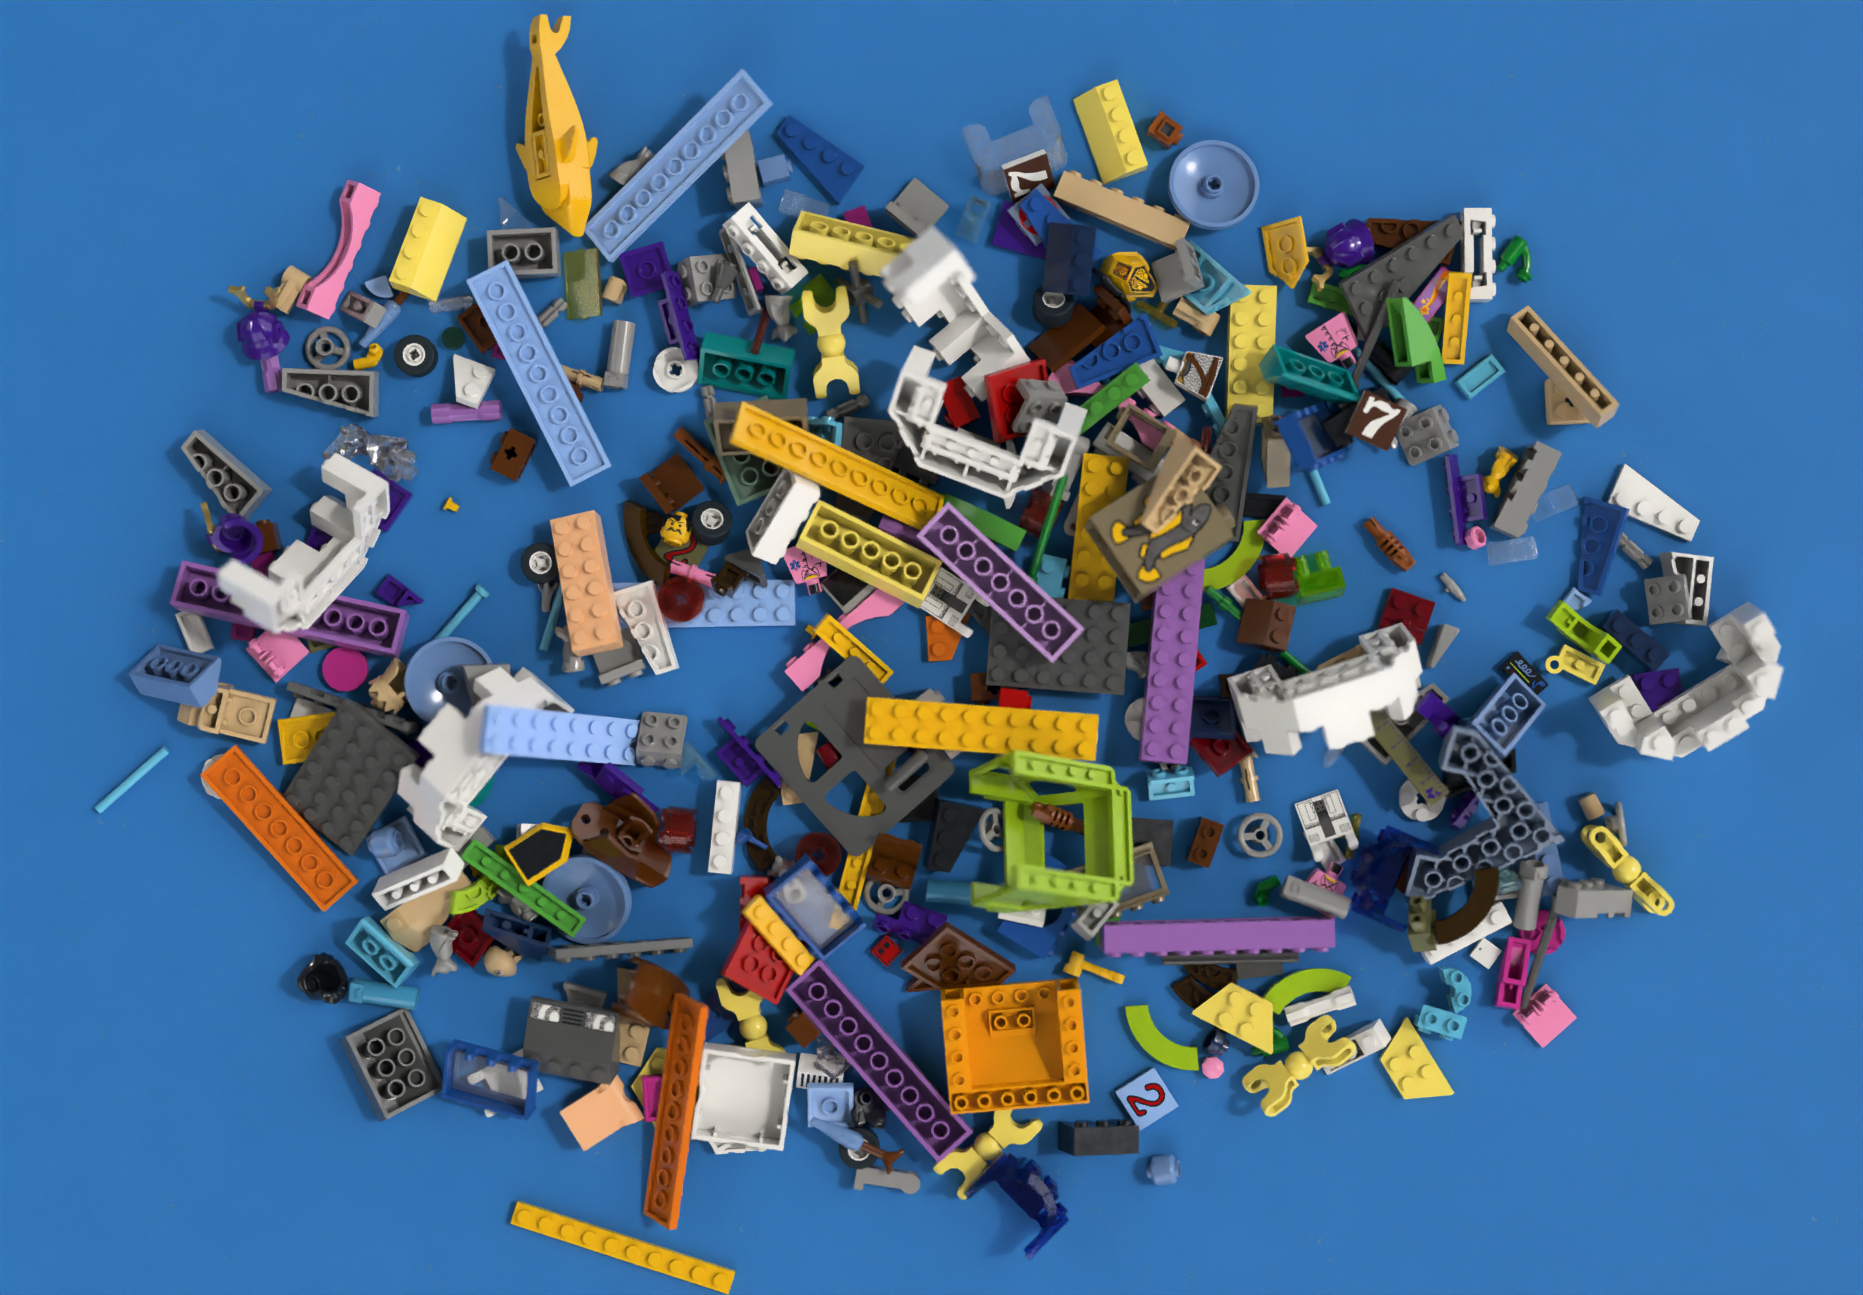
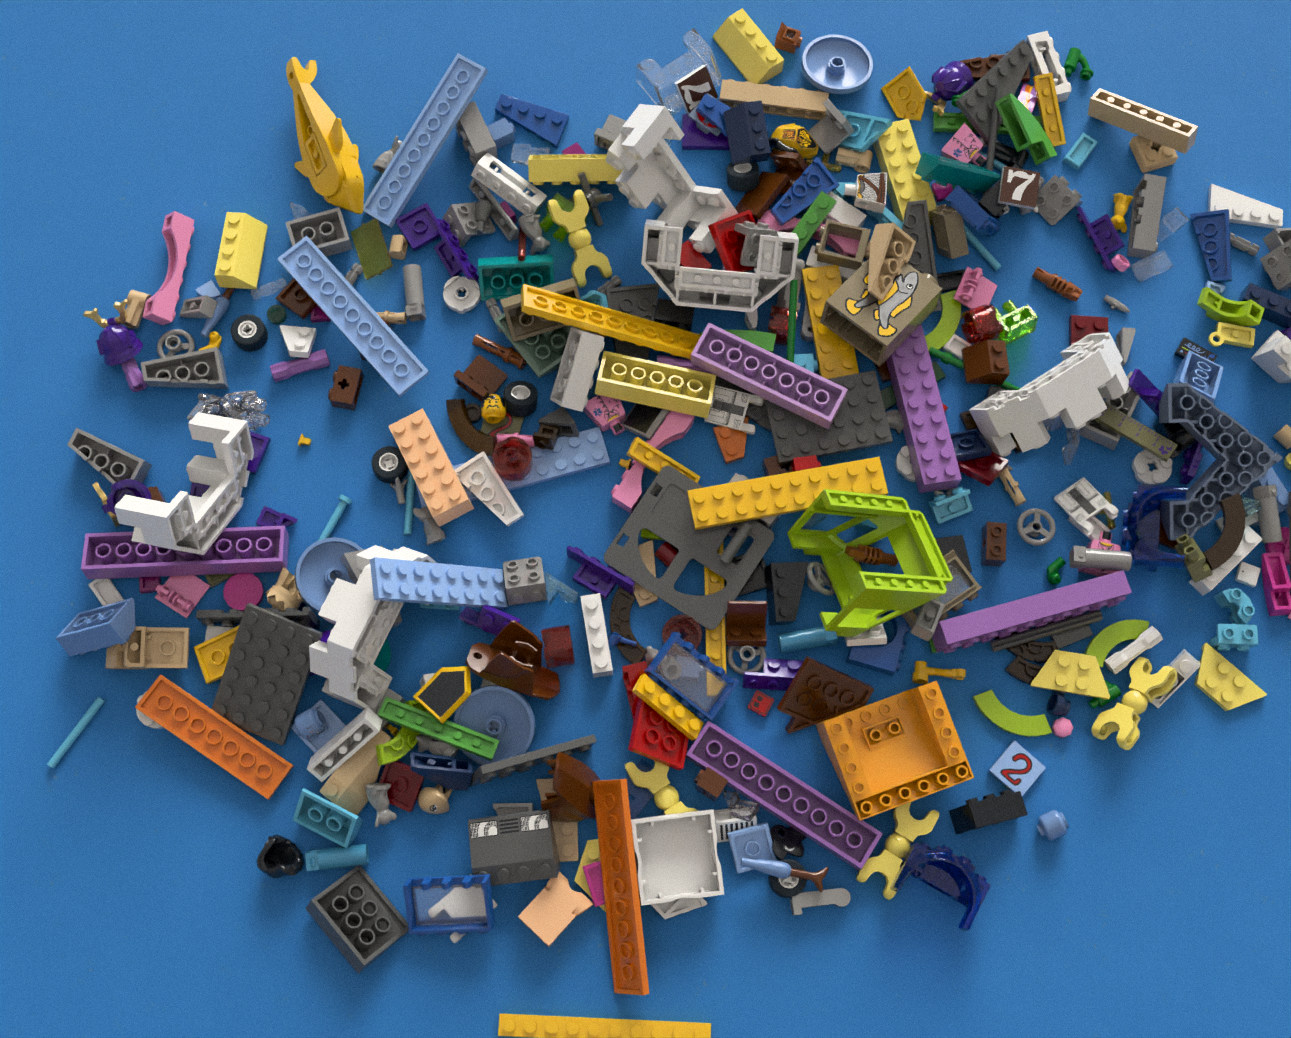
camera: 25 degrees left, 15 degrees down
(621, 661) = (473, 525): light grey bracket -> none

